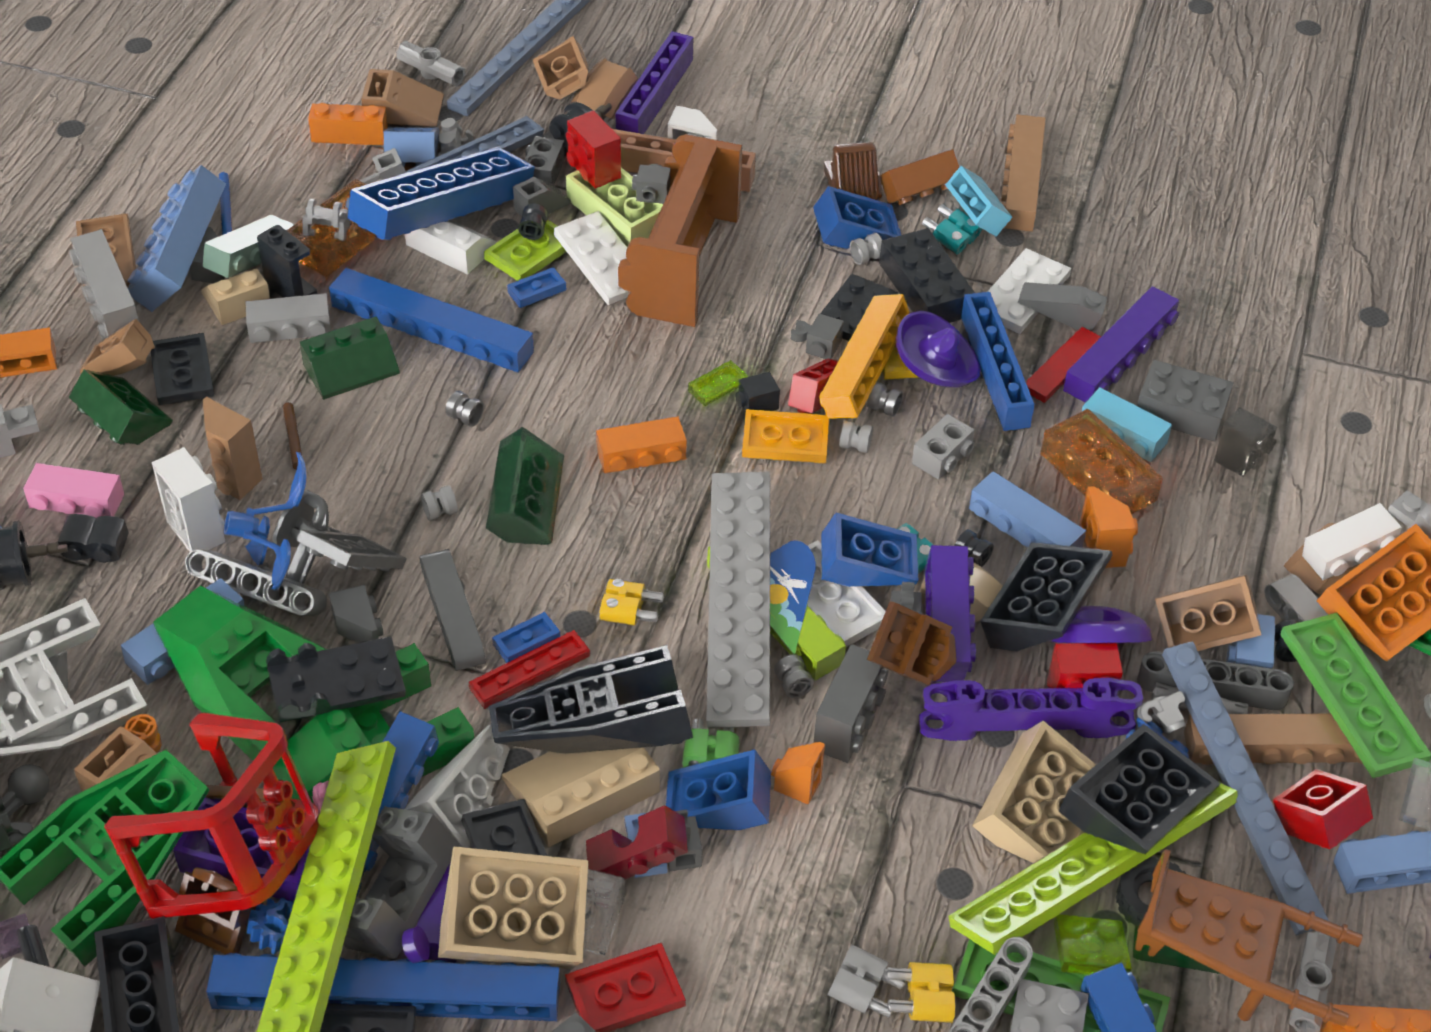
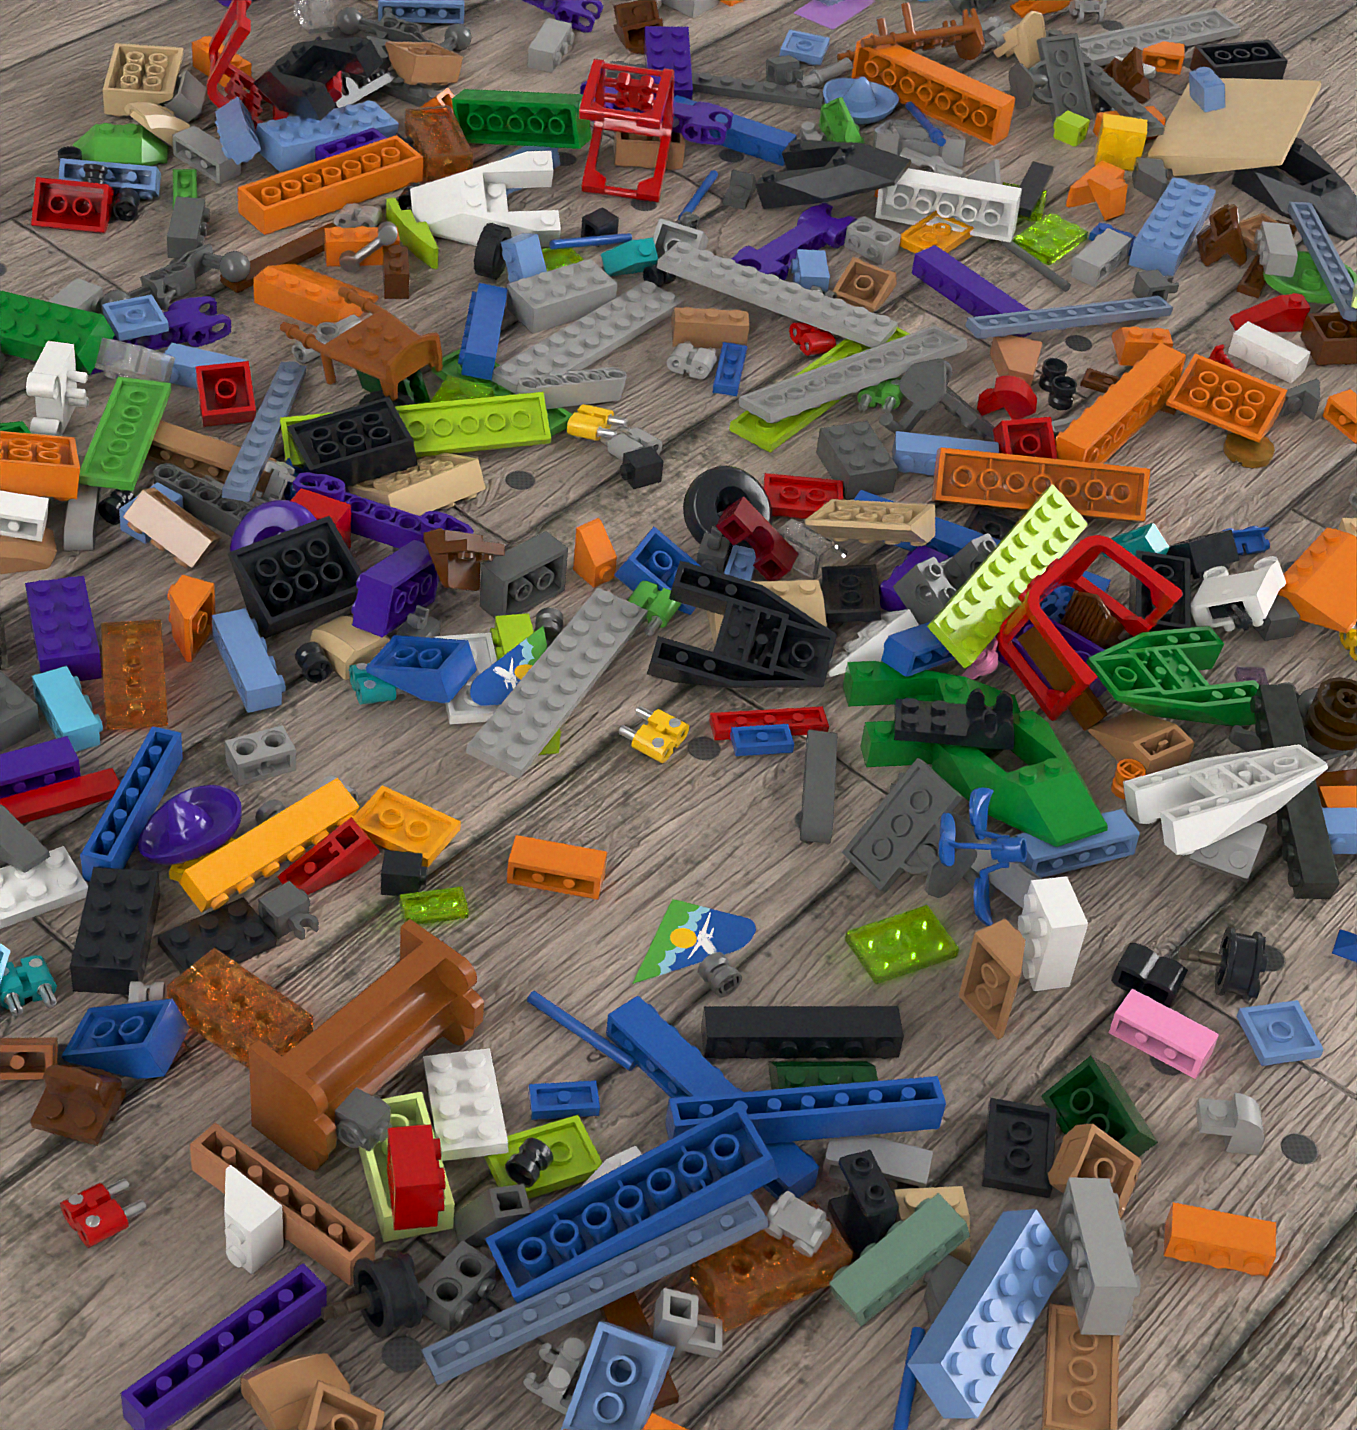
camera: 160 degrees left, 5 degrees down
(292, 432) = (913, 1025): reddish brown bar -> none
(333, 479) = (901, 944): none -> clear neon green plate
(346, 289) = (821, 1110): none -> blue brick
(379, 388) = (801, 1032): none -> black brick
(415, 944) = (950, 542): dark purple tile -> none
(439, 502) = (790, 884): light grey wheel -> none
(481, 454) = (691, 935): none -> sticker
(525, 489) = (700, 864): clear green slope -> none
(568, 345) = (582, 1031): none -> blue bar
(689, 897) = (717, 490): none -> black hat
(787, 128) = (97, 1215): none -> red piece
(793, 251) = (237, 1008): none -> clear orange brick
(829, 943) = (642, 467): none -> black brick
(1203, 490) = (63, 627): none -> dark purple brick

